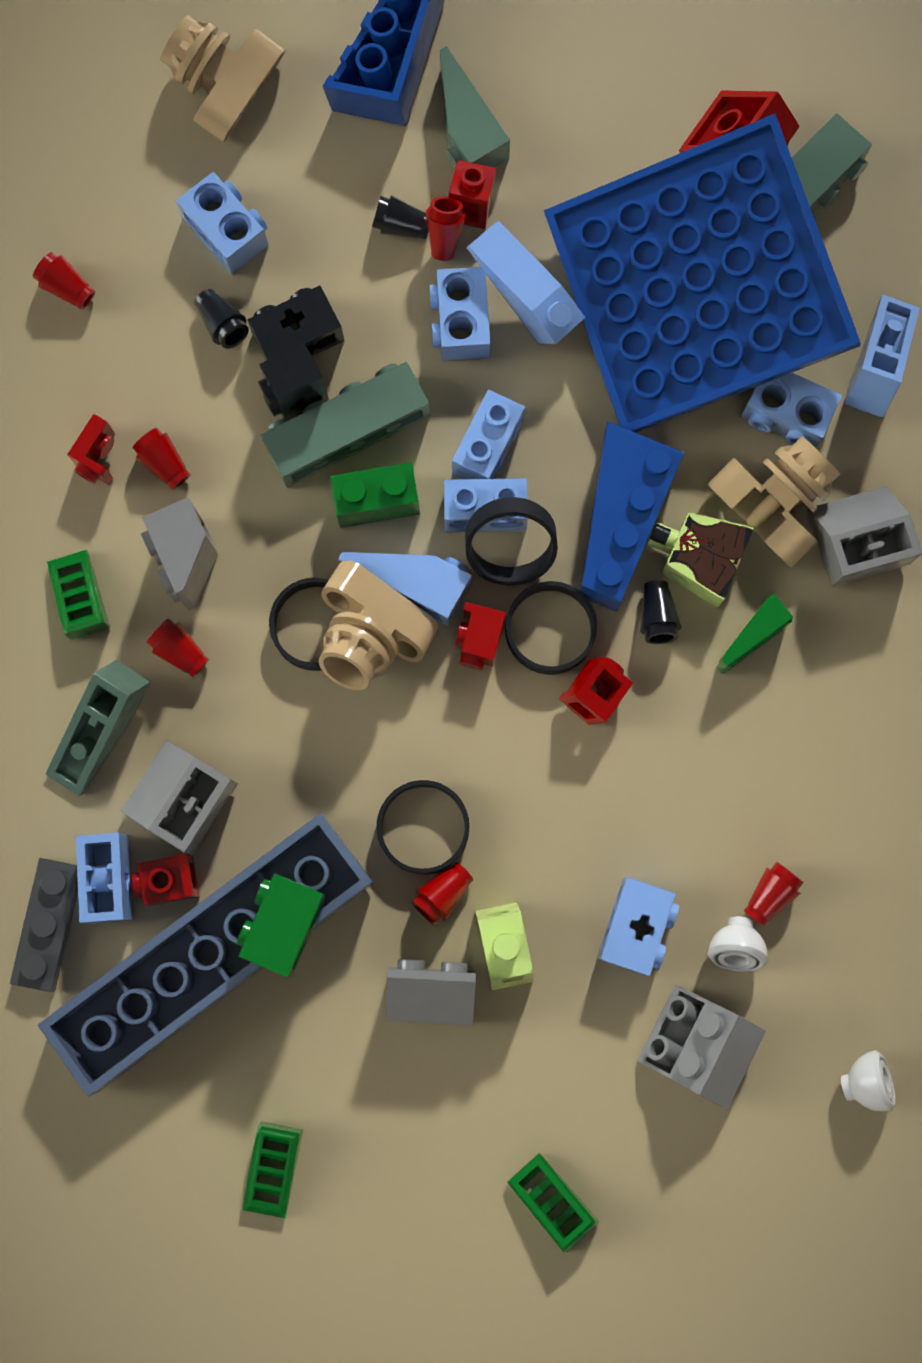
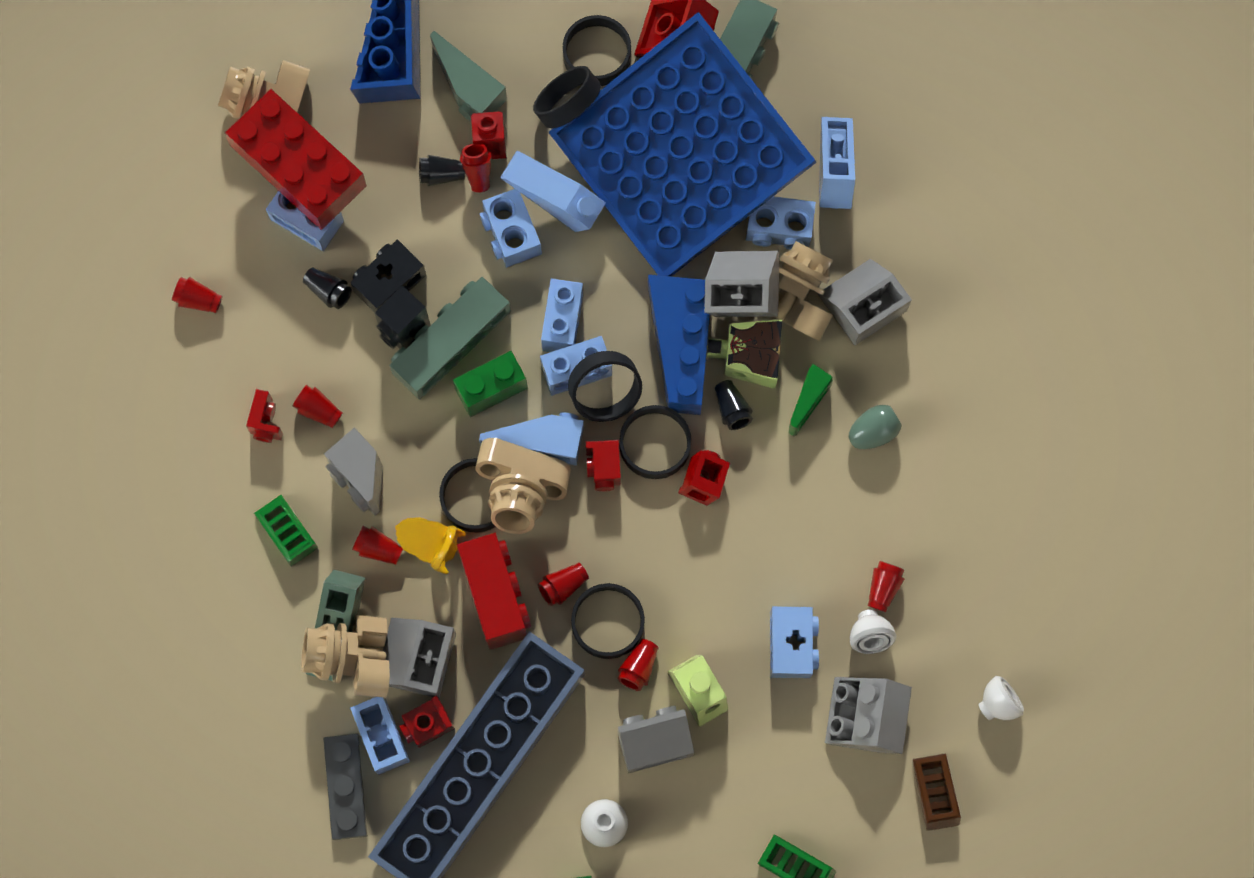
camera: 20 degrees left, 5 degrees down
(98, 771) = (349, 654): none -> tan beam
(228, 149) = (296, 159): none -> red brick
(240, 662) = (429, 541): none -> yellow piece
(280, 925) = (528, 721): green brick -> none
(295, 748) = (494, 590): none -> red brick
(339, 1070) = (604, 823): none -> white brick
(383, 764) = (562, 583): none -> red cone
(606, 171) = (575, 105): none -> black tyre
(640, 94) = (604, 21): none -> black tyre
(720, 469) = (743, 284): none -> light grey slope
(770, 1168) = (941, 820): none -> reddish brown slope
(824, 696) = (875, 428): none -> sand green animal

